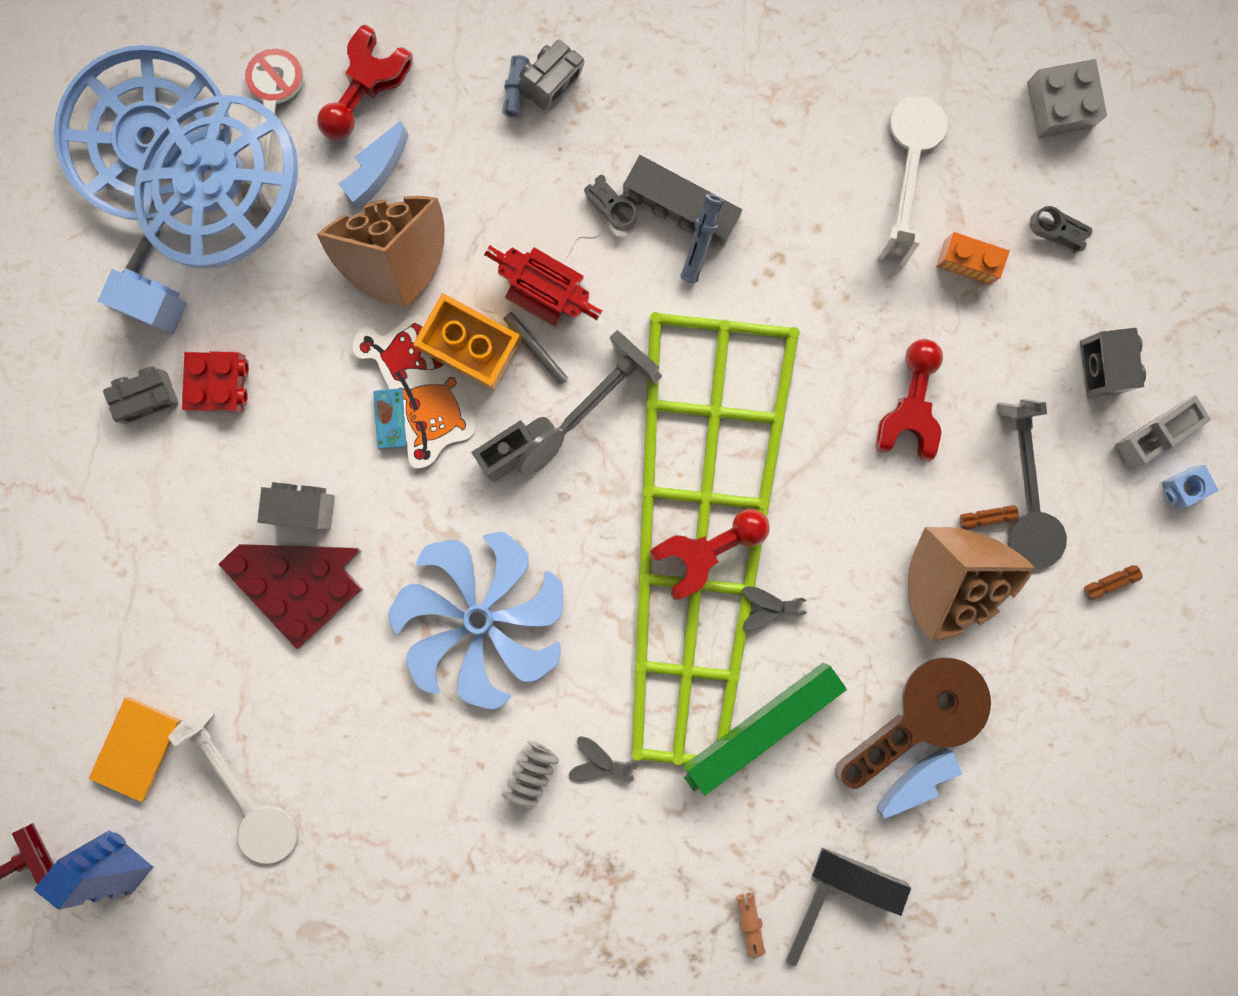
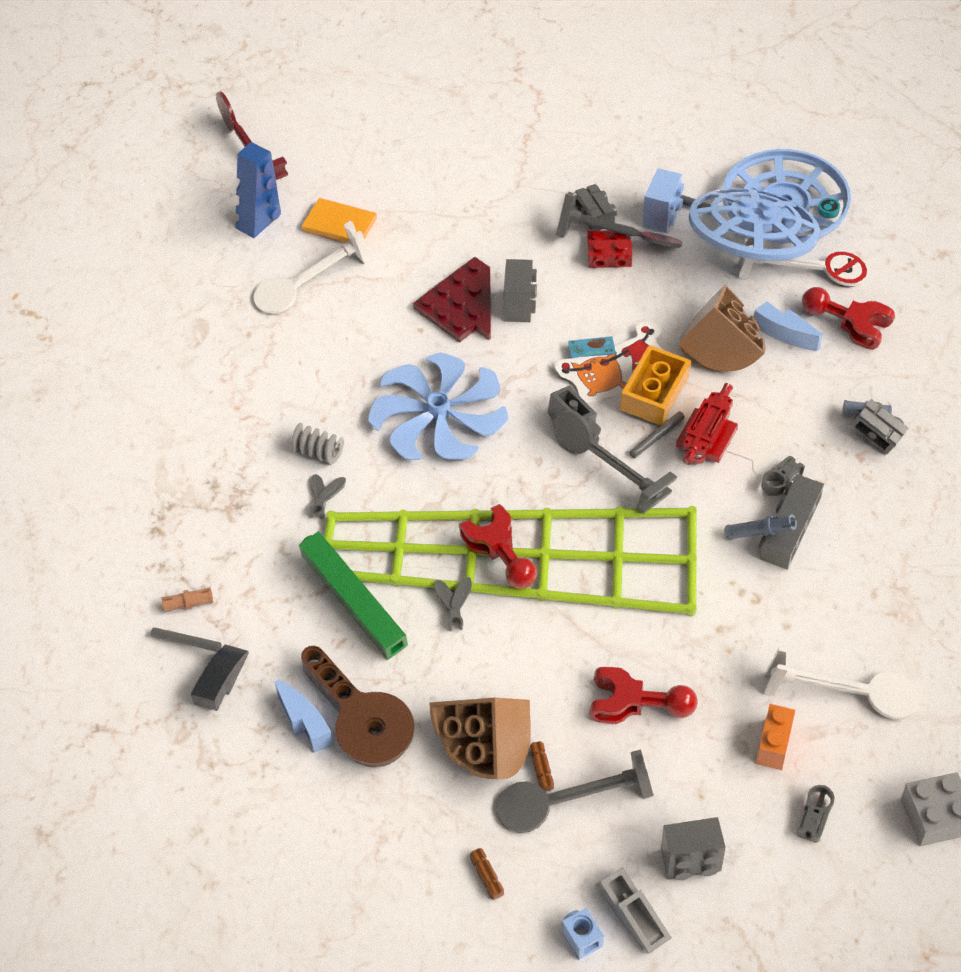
camera: 85 degrees right, 35 degrees down
(179, 78) = (828, 208): none -> teal tile
(206, 320) = (569, 216): none -> dark grey piece

